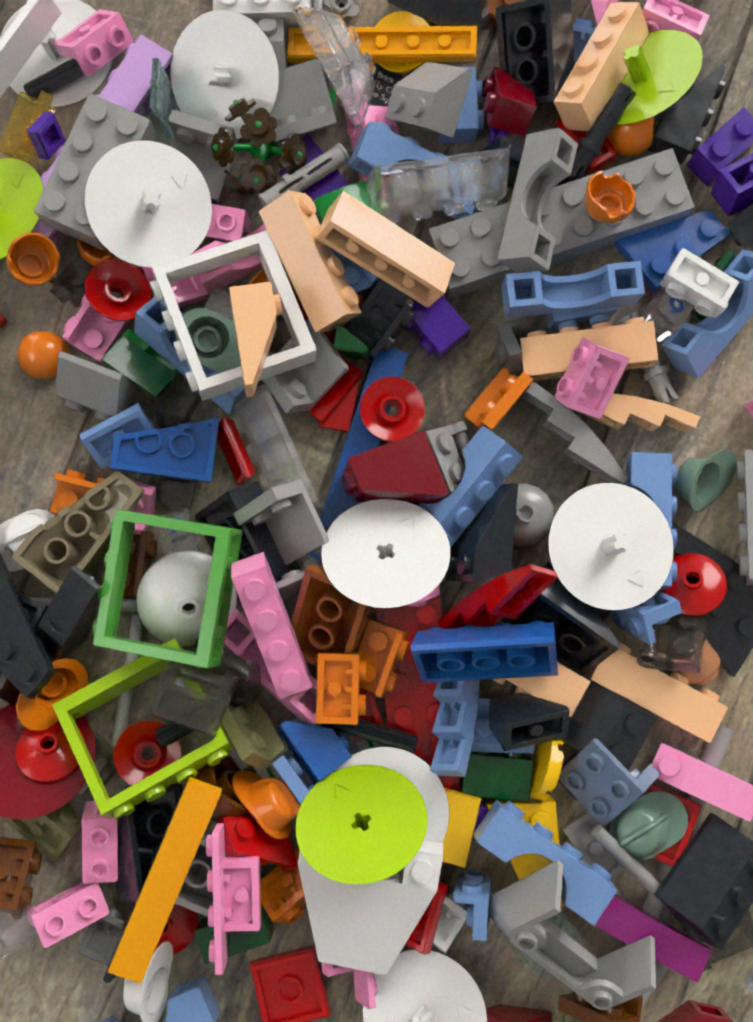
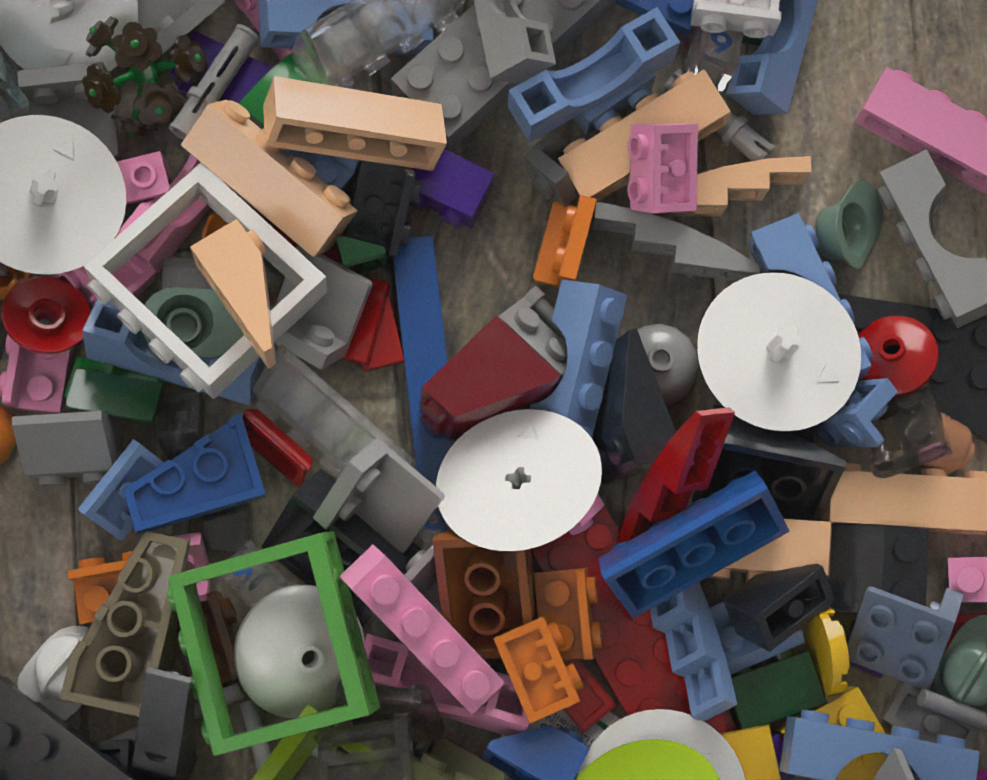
camera: 30 degrees left, 5 degrees down
(378, 734) = (605, 707): black axle -> none
(401, 395) = (444, 288): red dish -> none

